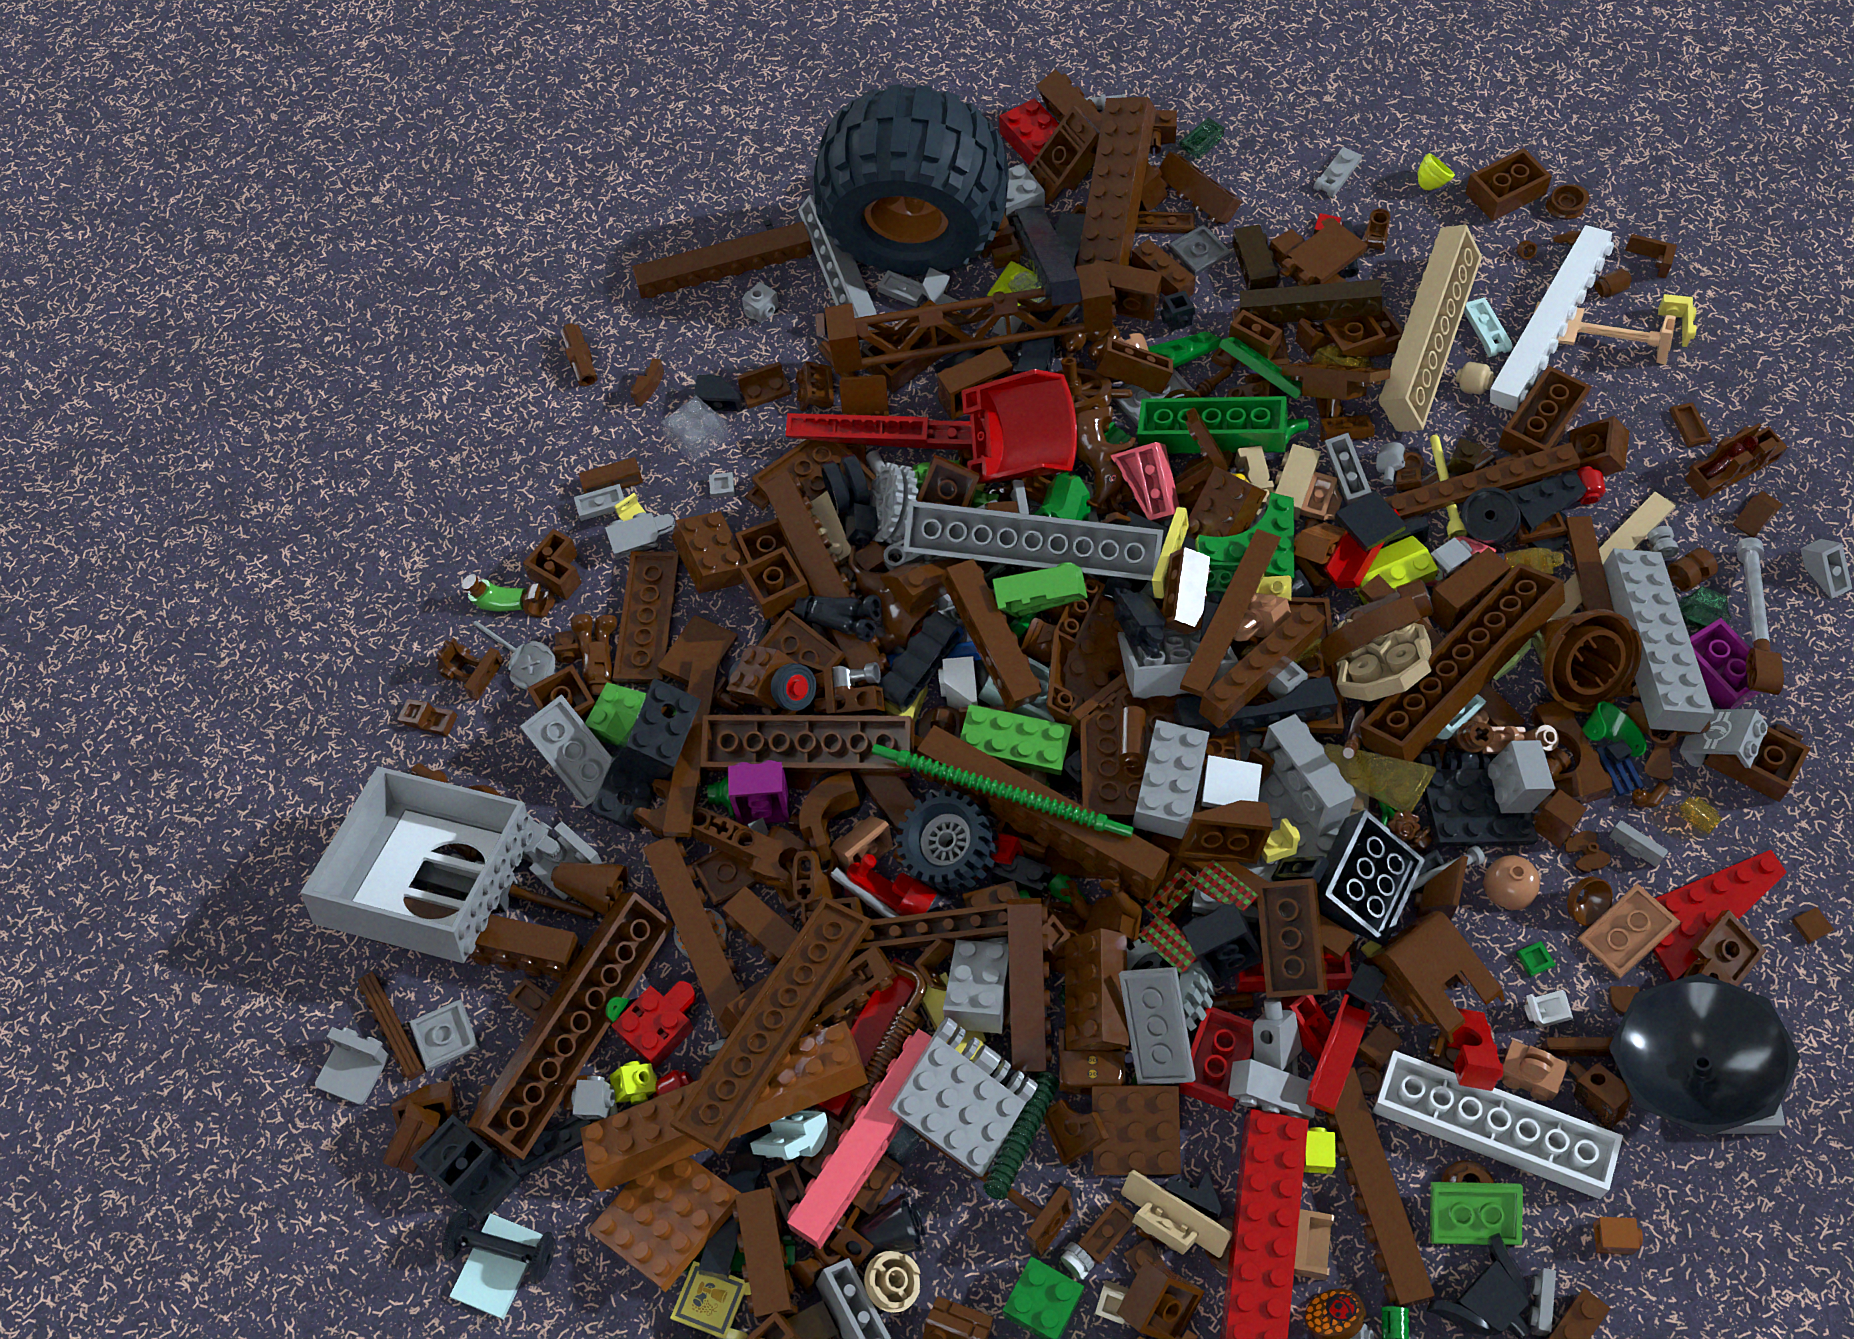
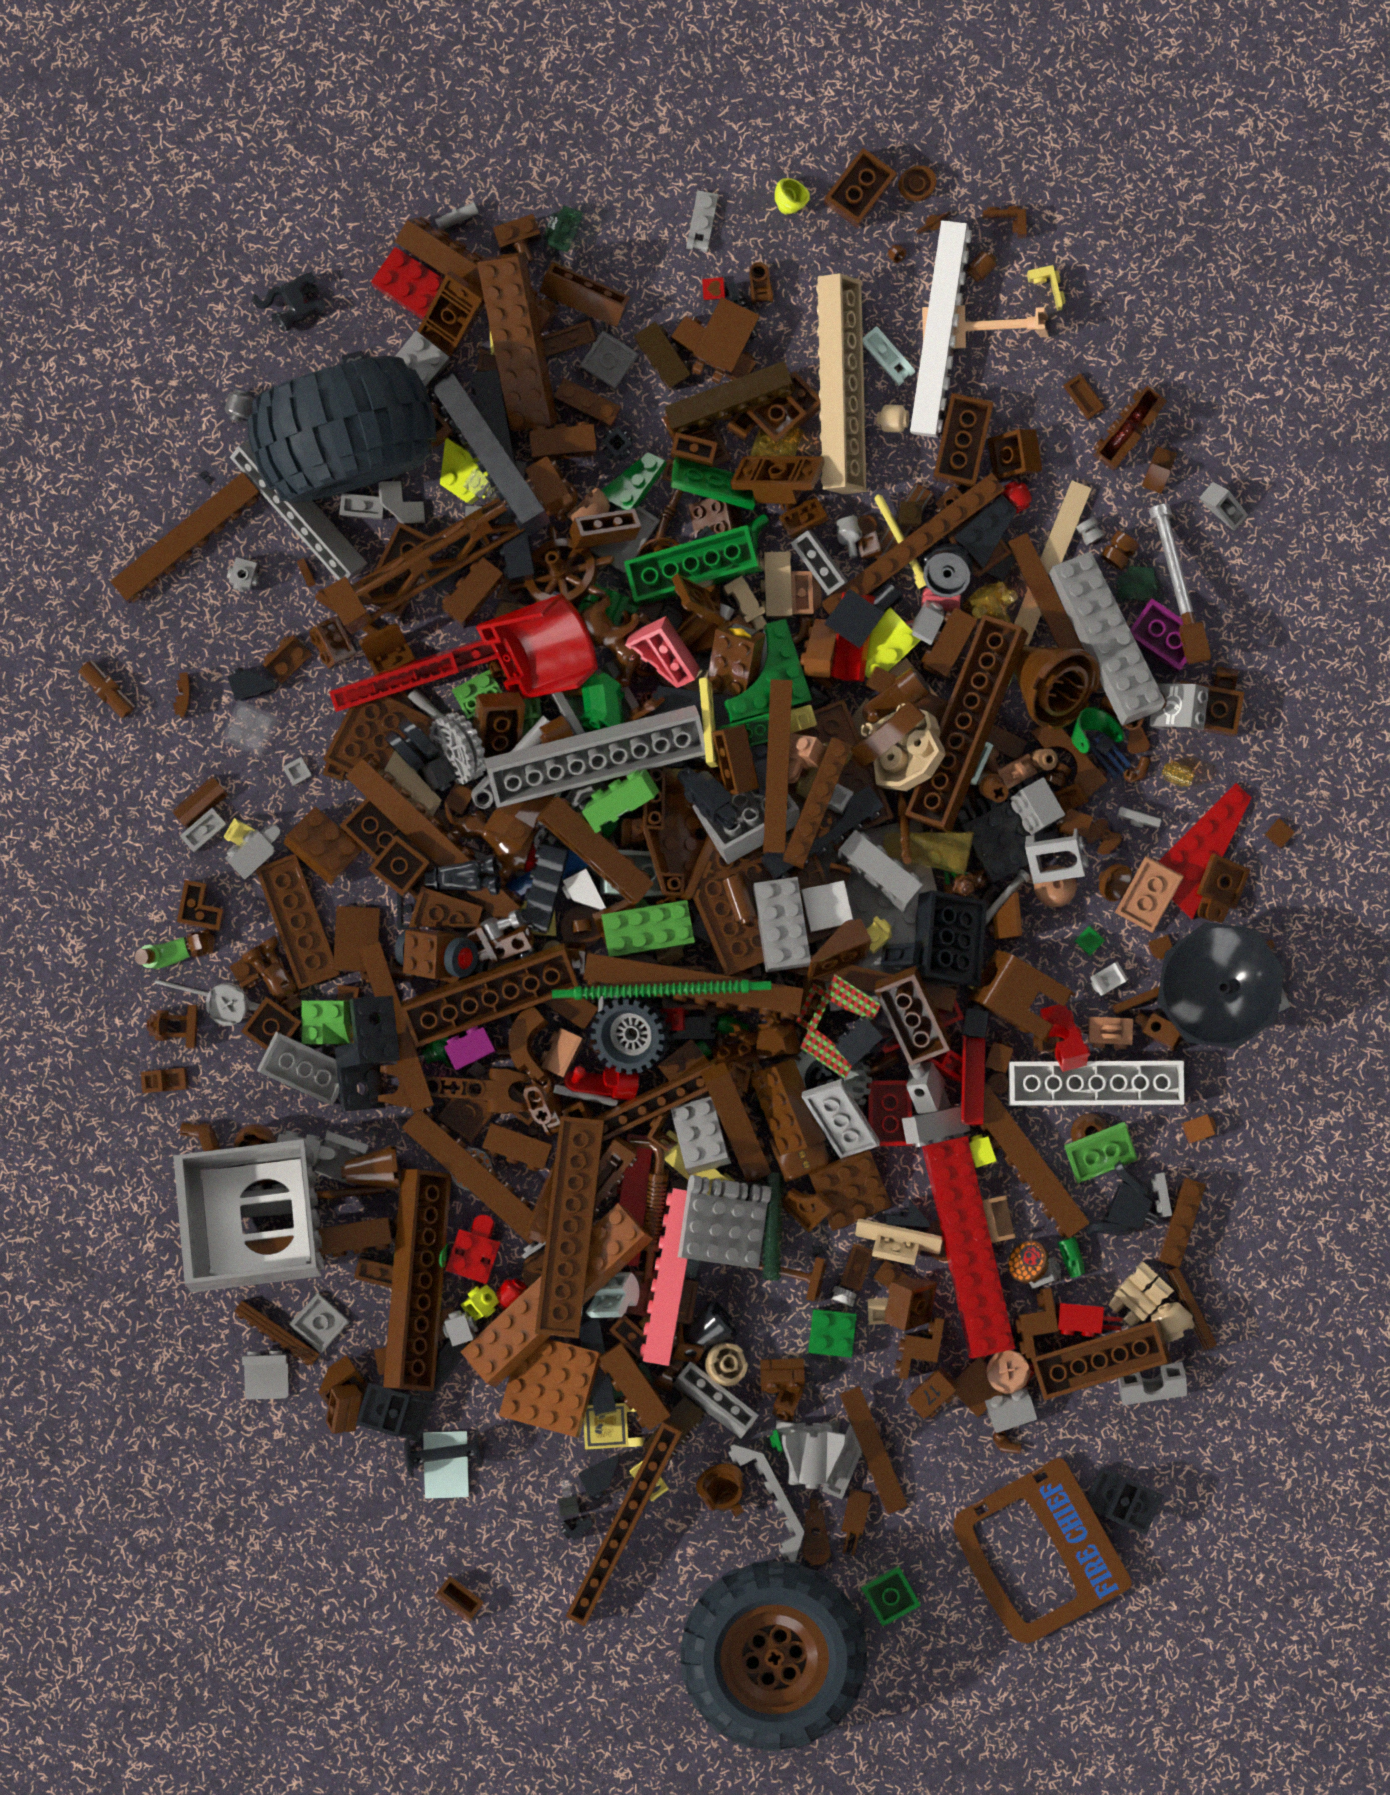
camera: 30 degrees left, 25 degrees up
(1549, 820) = (1073, 844): none -> light grey panel

